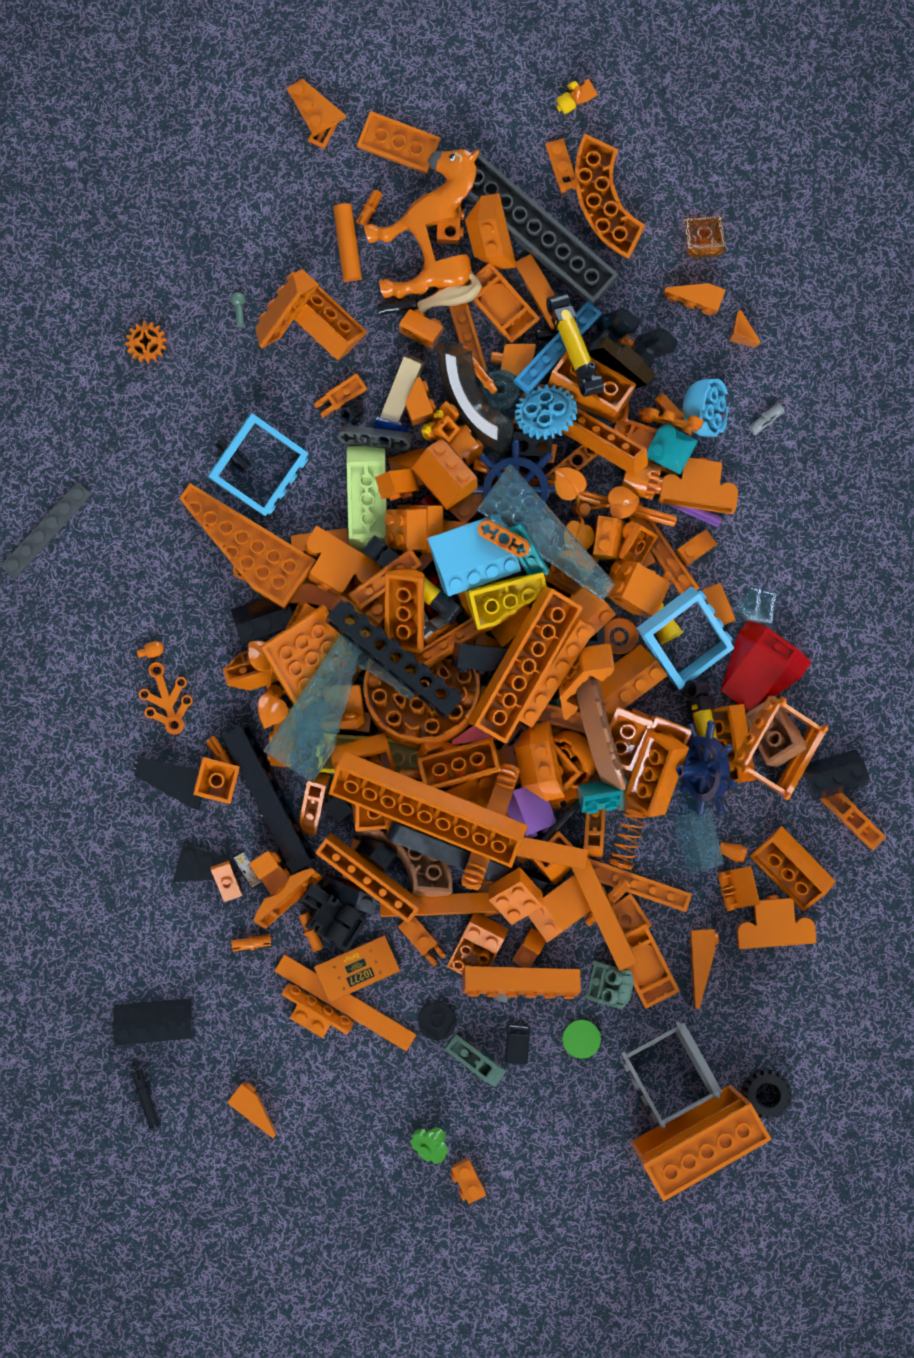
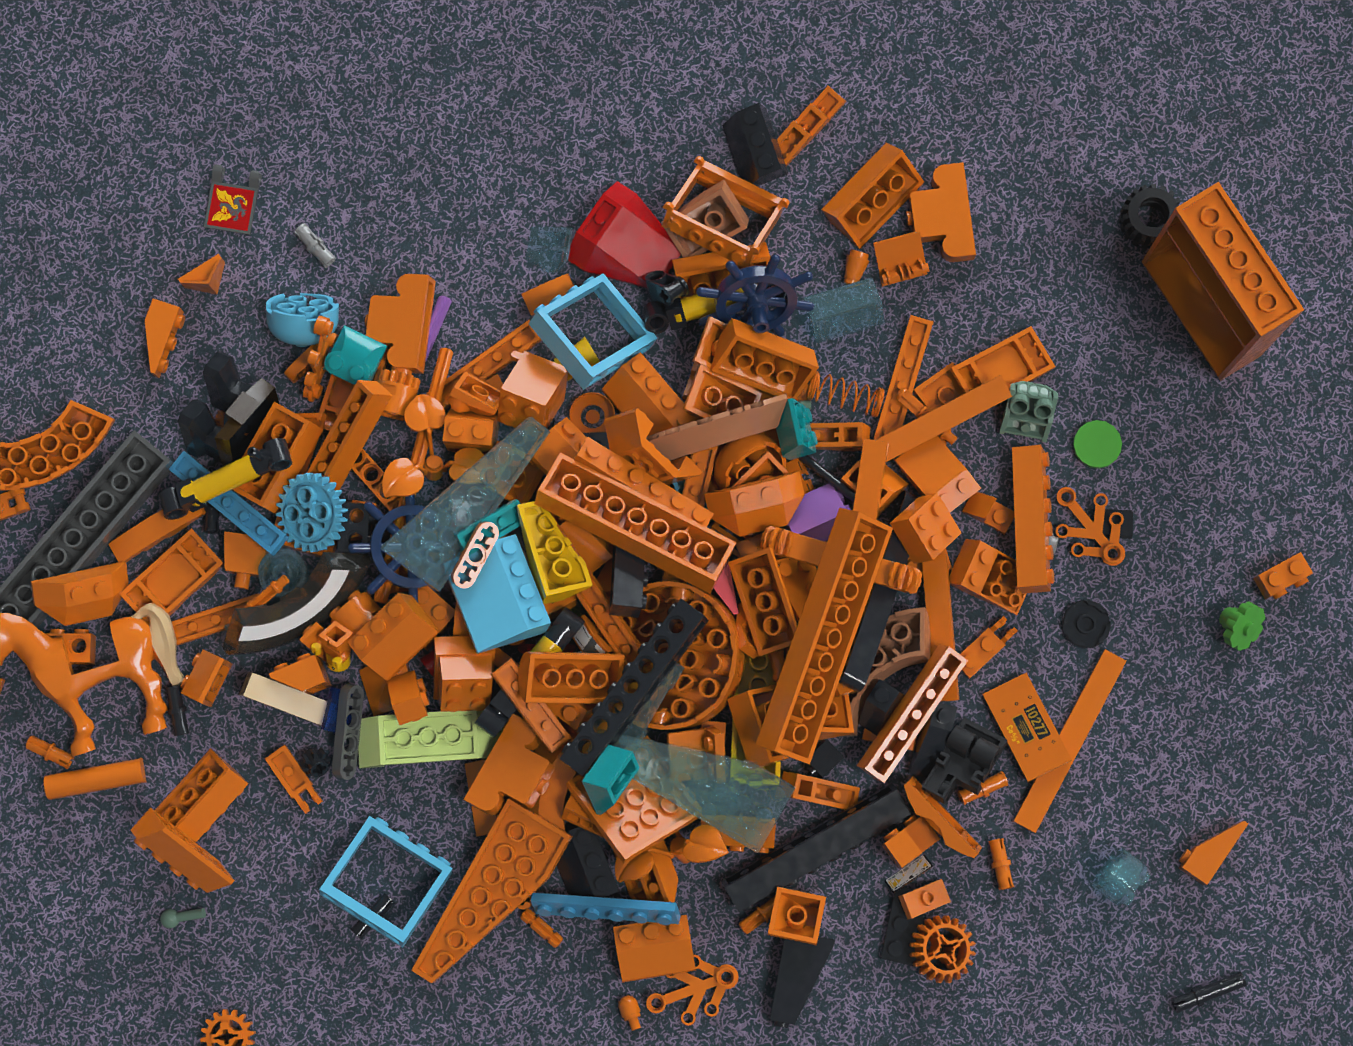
camera: 85 degrees left, 5 degrees down
(153, 1021) = (1109, 986): black slope -> none
(174, 901) = (953, 965): none -> orange gear
(197, 670) = (653, 949): none -> orange slope
(218, 583) = (541, 928): none -> orange axle
(229, 629) = (606, 908): none -> dark azure plate
(235, 1035) = (1121, 877): none -> clear light blue brick
(315, 1014) = (1087, 779): orange bracket -> none
(324, 637) = (609, 777): none -> teal slope
(475, 1060) = (1132, 573): sand green slope -> none
(511, 1030) = (1093, 529): none -> orange plant
(696, 547) = (479, 325): orange slope -> none
(697, 1060) = (1117, 299): light grey window -> none
(702, 953) = (983, 300): orange slope -> none
(704, 237) = (85, 327): clear orange slope -> none
(719, 697) = (665, 287): none -> black piece
(802, 352) = (231, 205): none -> flag

